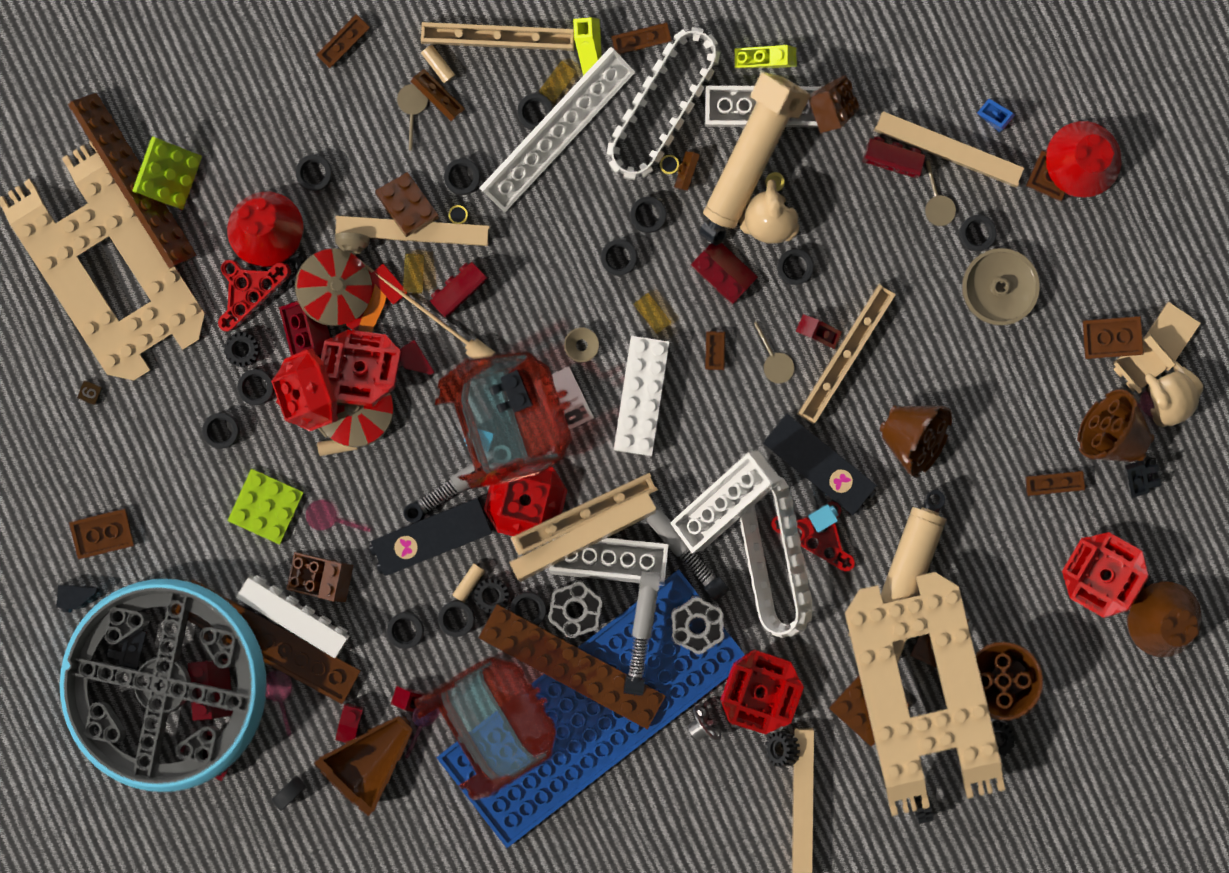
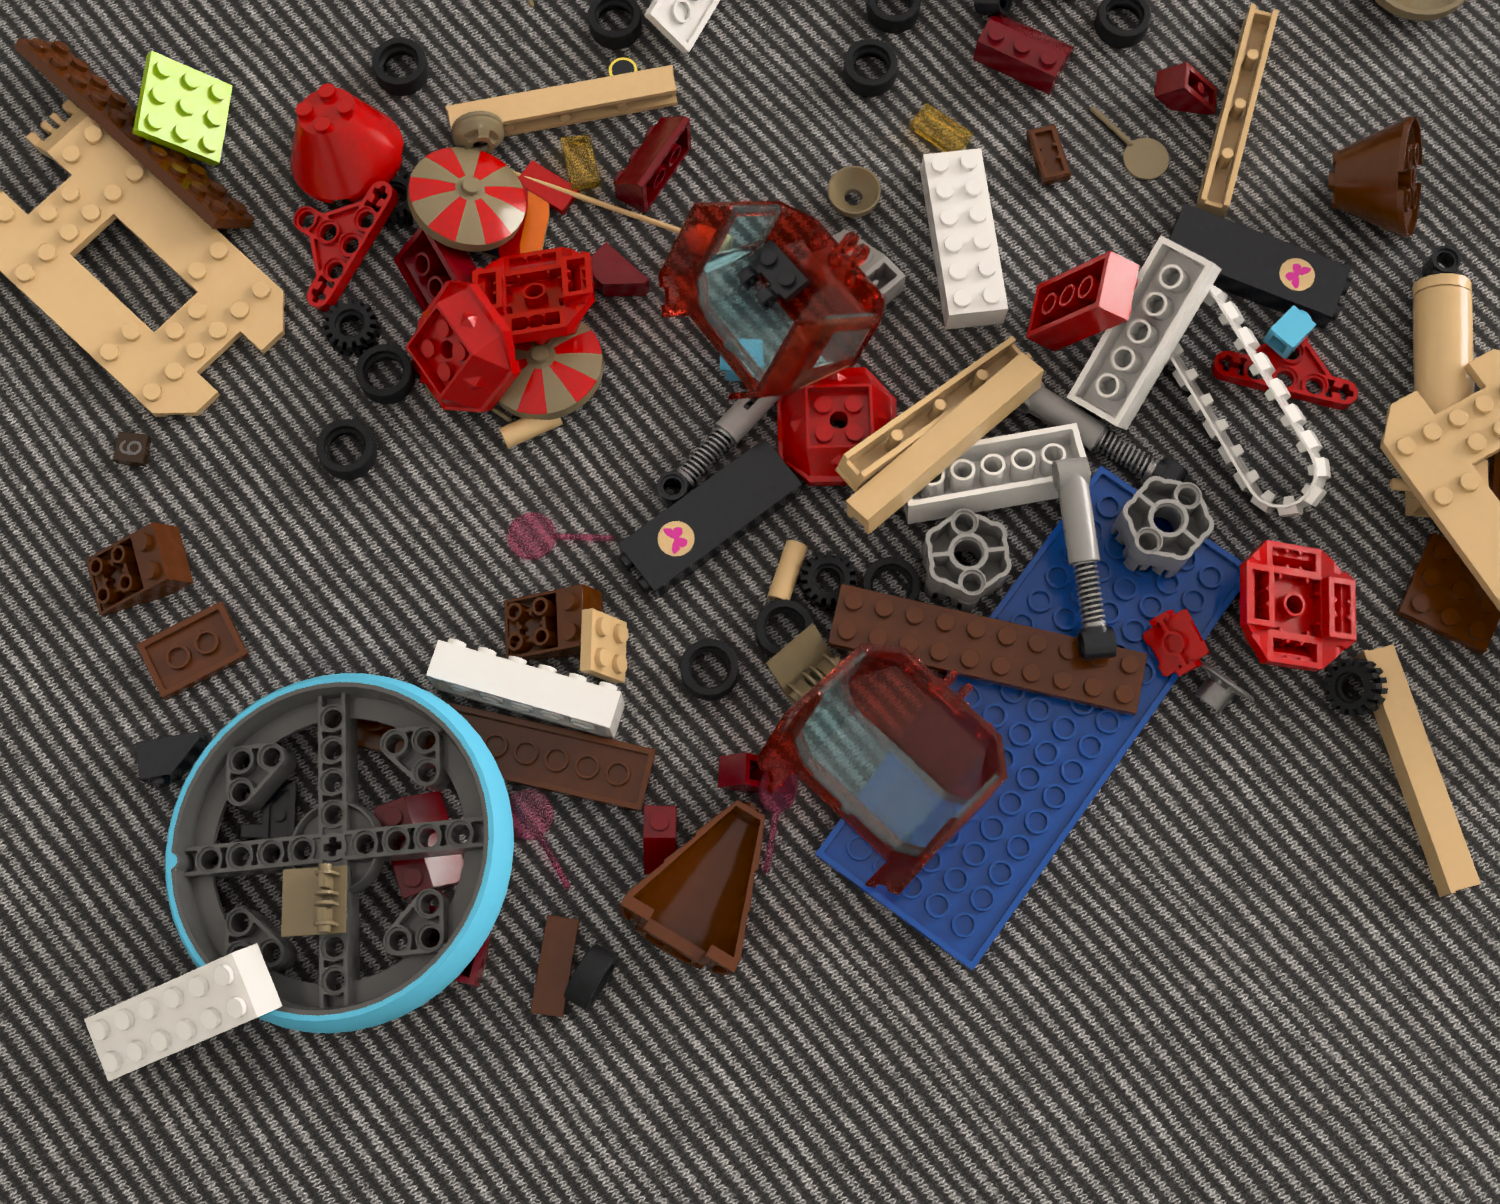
camera: 20 degrees left, 15 degrees down
(56, 754) = (183, 1012): none -> white brick
(79, 474) = (139, 568): none -> reddish brown slope
(143, 716) = (314, 901): none -> dark tan hinge
(265, 506) = (442, 544): lime plate -> none
(270, 778) = (555, 966): none -> reddish brown tile
(345, 602) = (603, 646): none -> tan plate
(406, 204) = (545, 68): reddish brown plate -> none
(461, 644) = (802, 663): none -> dark tan hinge
(683, 695) = (1176, 642): none -> red piece
(694, 471) = (1083, 301): none -> red brick

